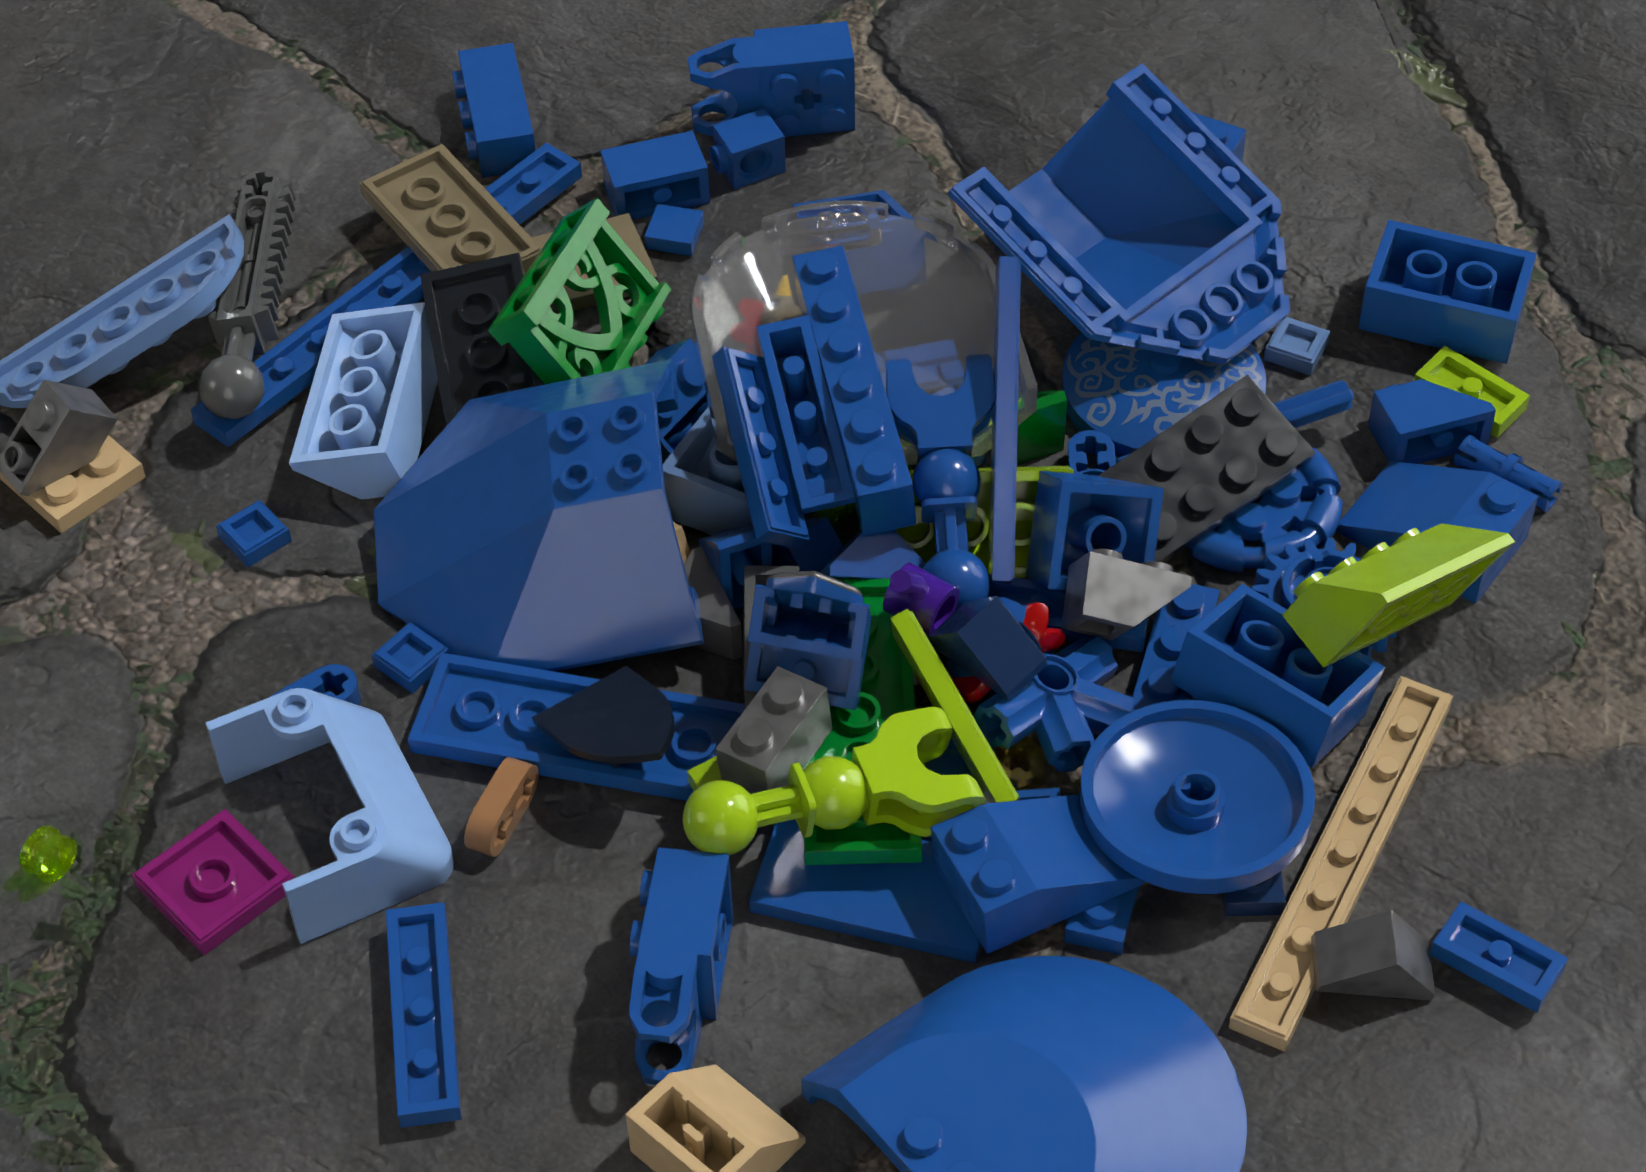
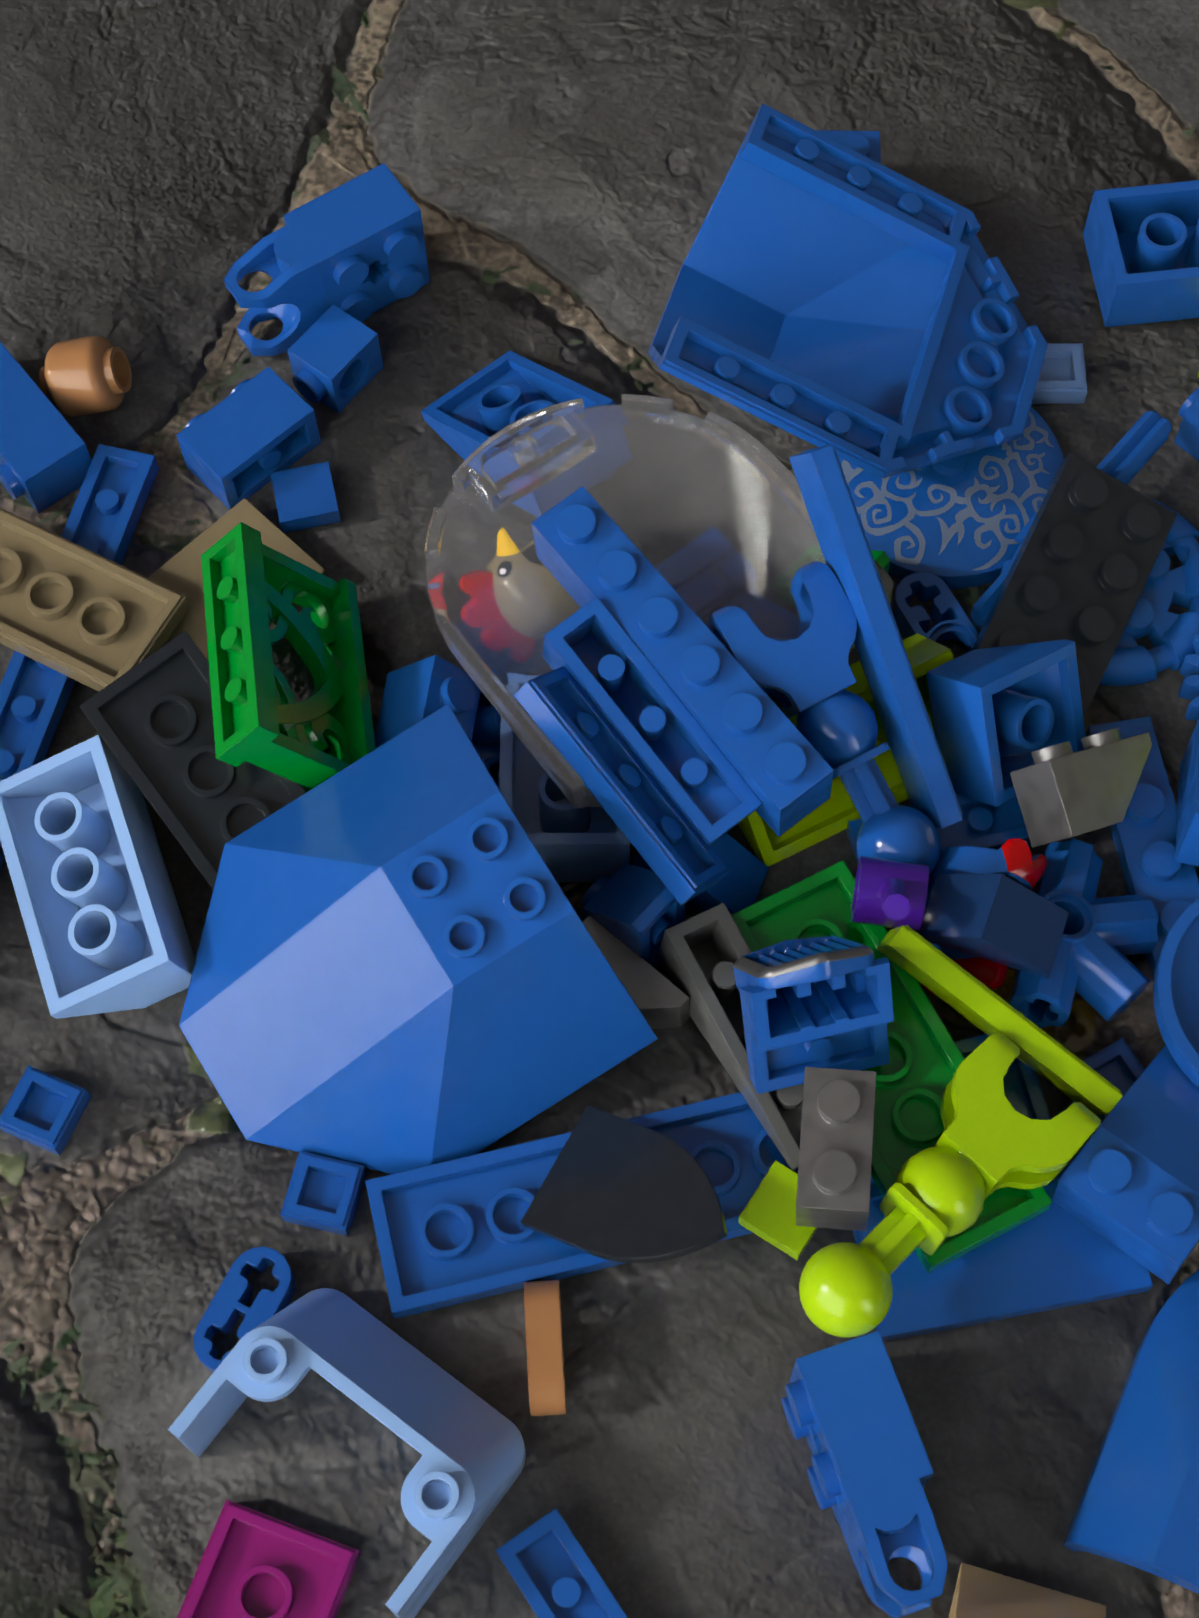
camera: 25 degrees left, 15 degrees up
(564, 99) = (85, 376): none -> medium nougat head
(871, 557) = (774, 863): blue slope -> none

